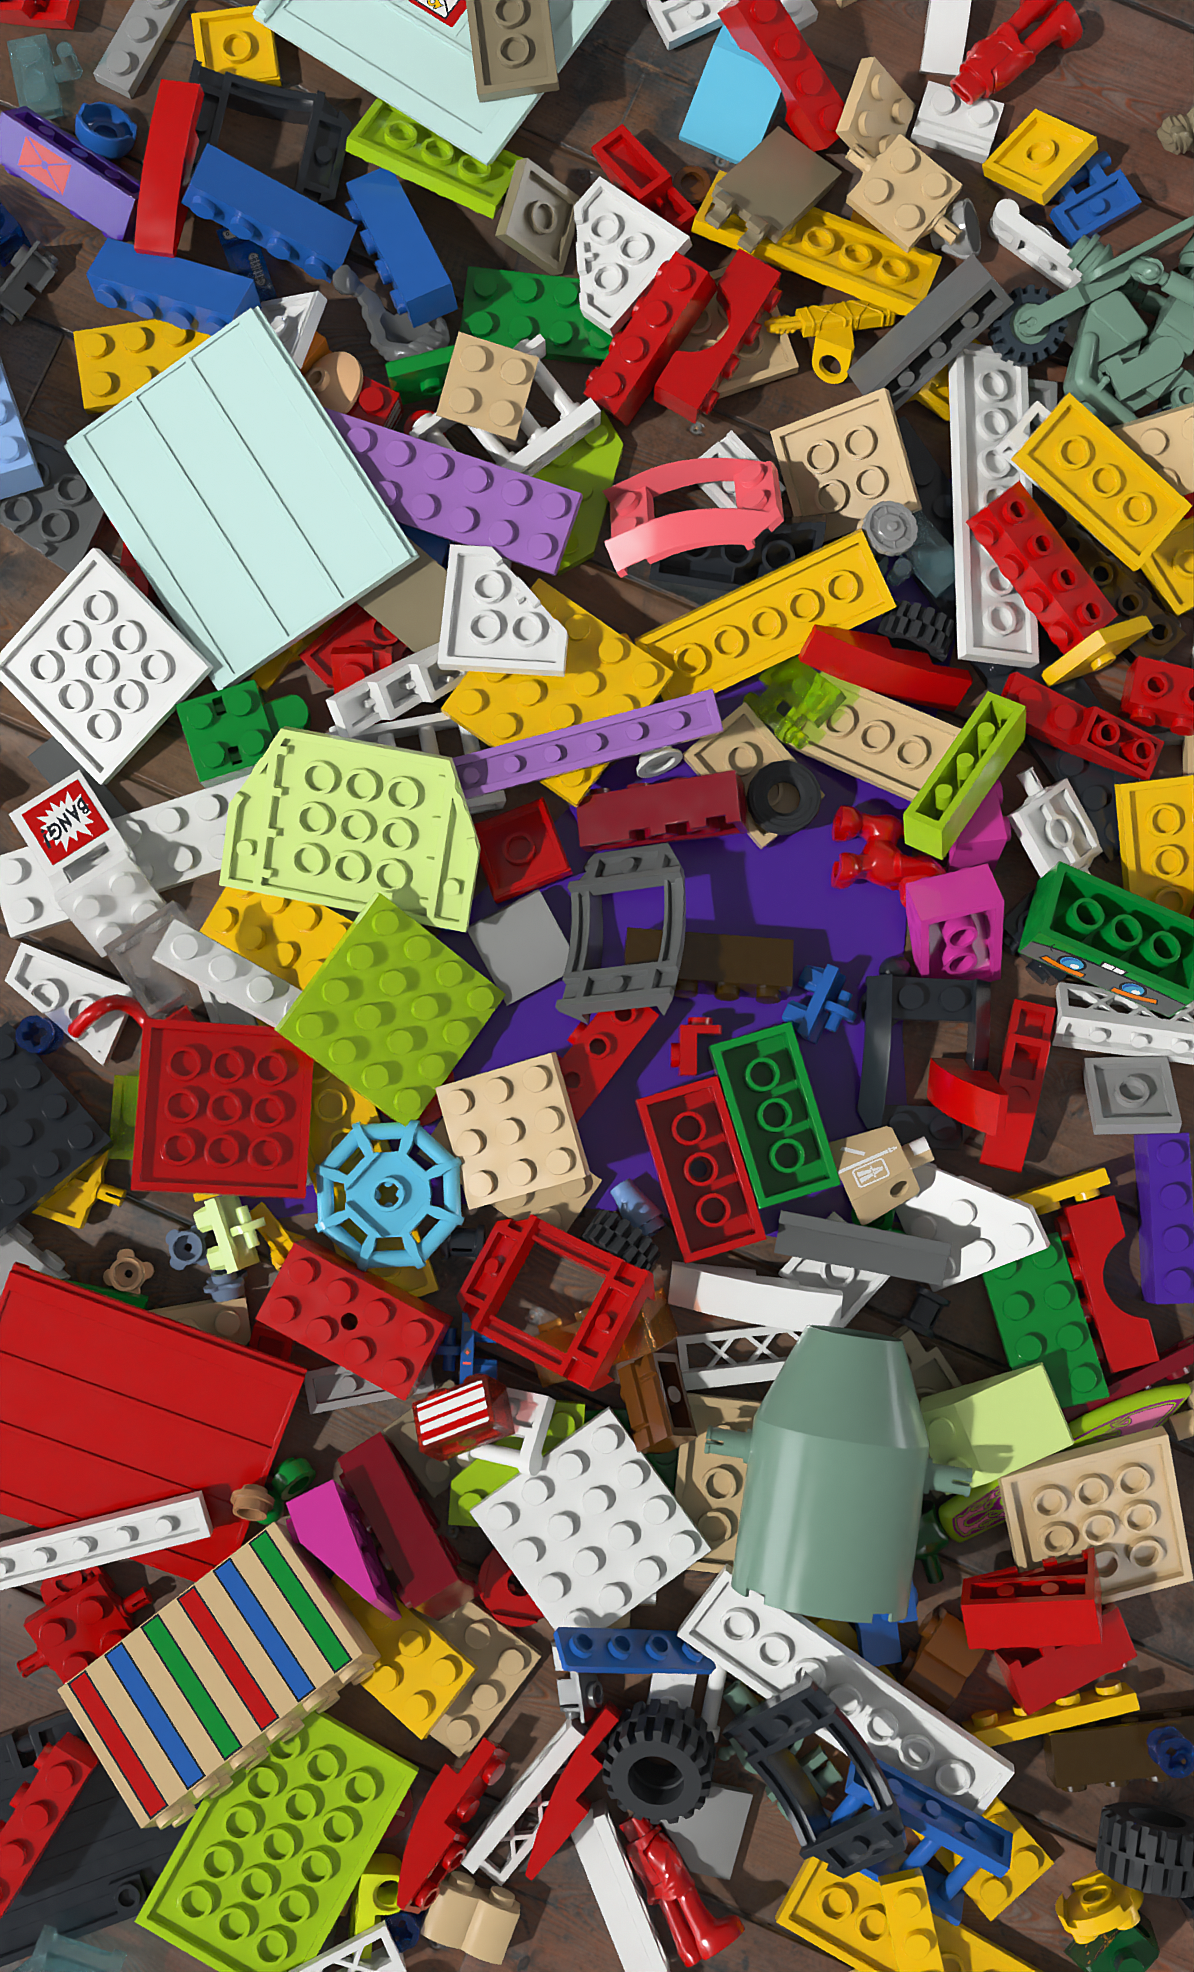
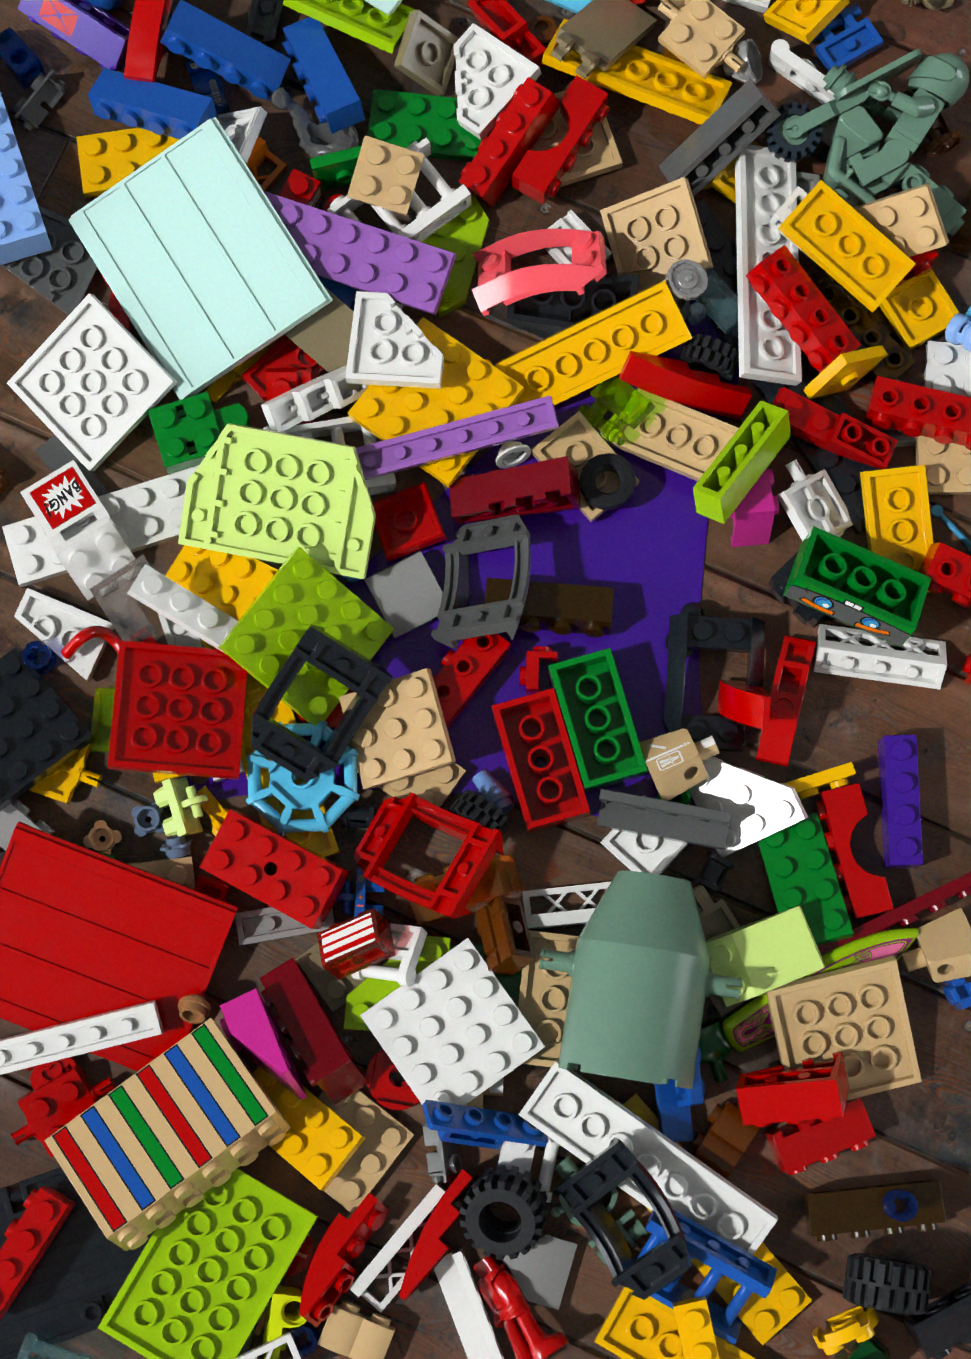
camera: 10 degrees right, 5 degrees down
(289, 1481) = (221, 992): green plate -> none
(336, 381) = (273, 172): light nougat dish -> none
(437, 1051) = (339, 663): none -> black wedge
(752, 1298) = (577, 858): white slope -> none
(826, 986) = (638, 640): blue hips -> none
(833, 330) = (648, 136): yellow piece -> none
(880, 858) = (681, 529): red animal -> none
(956, 925) = (737, 576): dark pink slope -> none
(1076, 1708) = (823, 1179): yellow plate -> none
(1131, 1095) = (873, 708): light grey plate -> none

